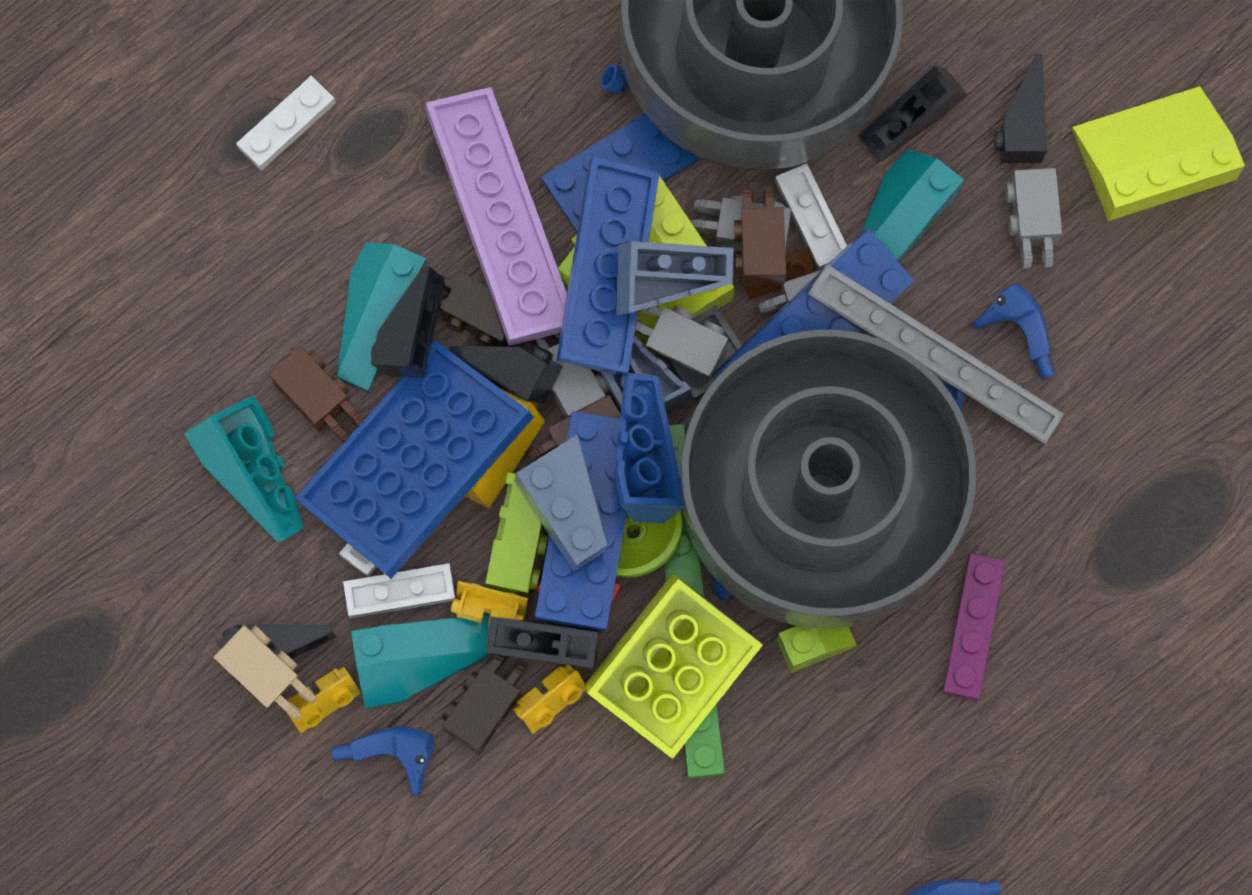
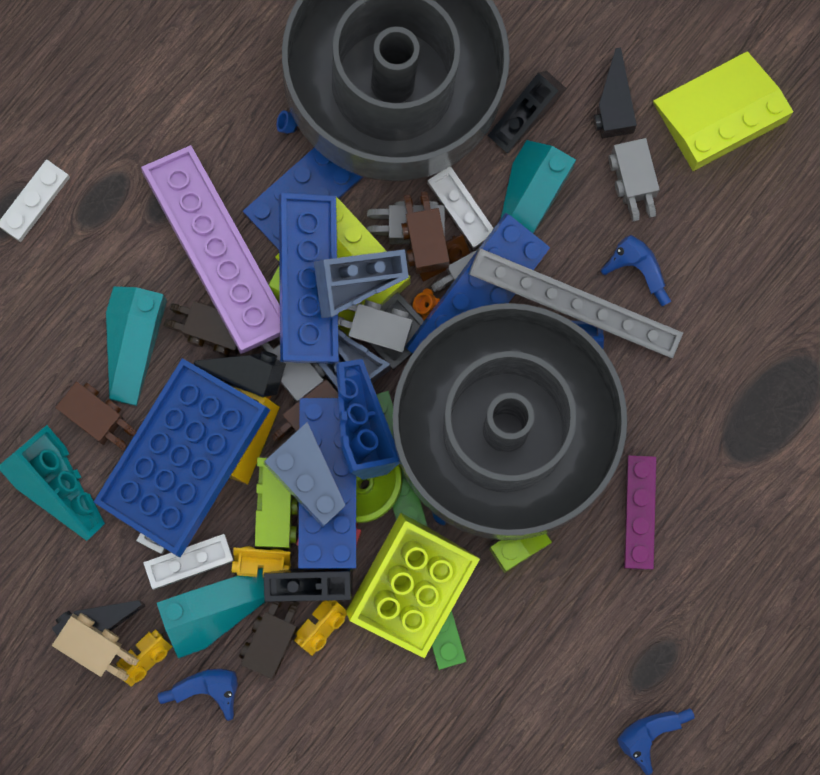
camera: 10 degrees left, 5 degrees up
(408, 331) = (160, 354): black slope -> none
(743, 321) = (421, 301): none -> orange plate

